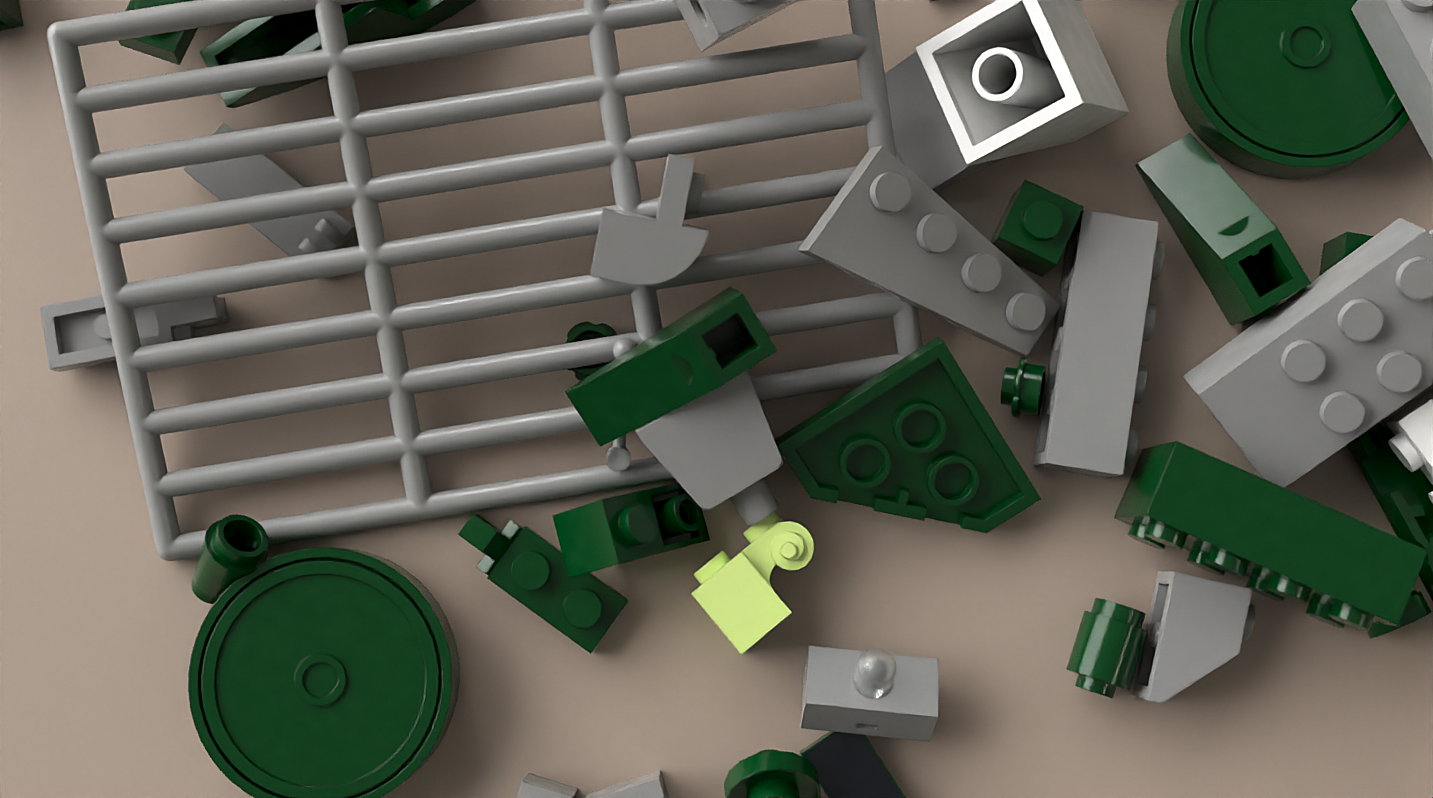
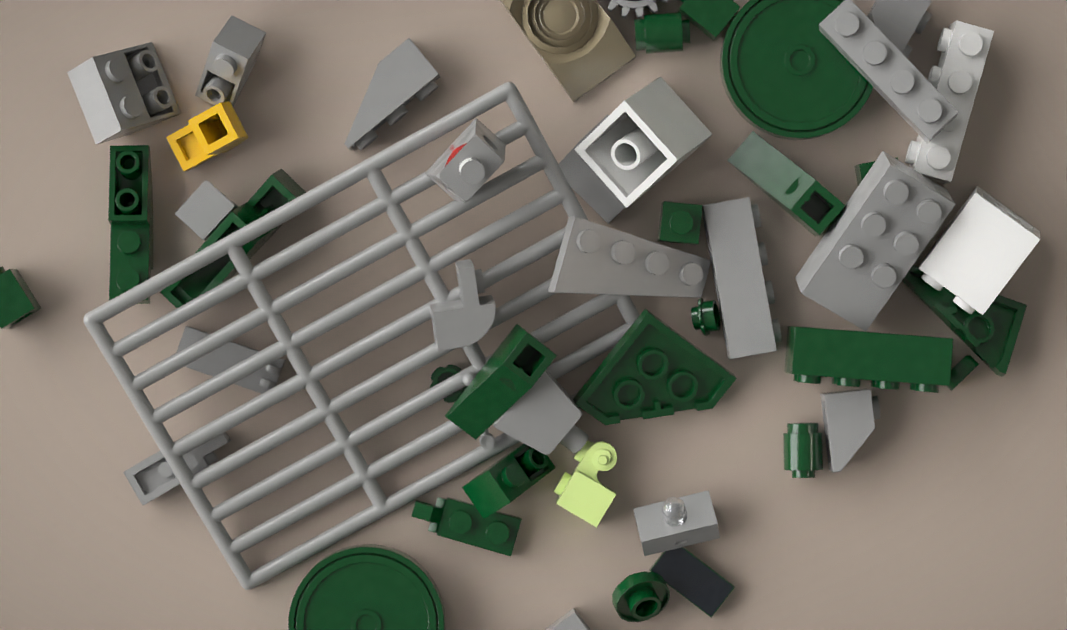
camera: 15 degrees left, 5 degrees up
(228, 553) = (287, 573): dark green cone -> none

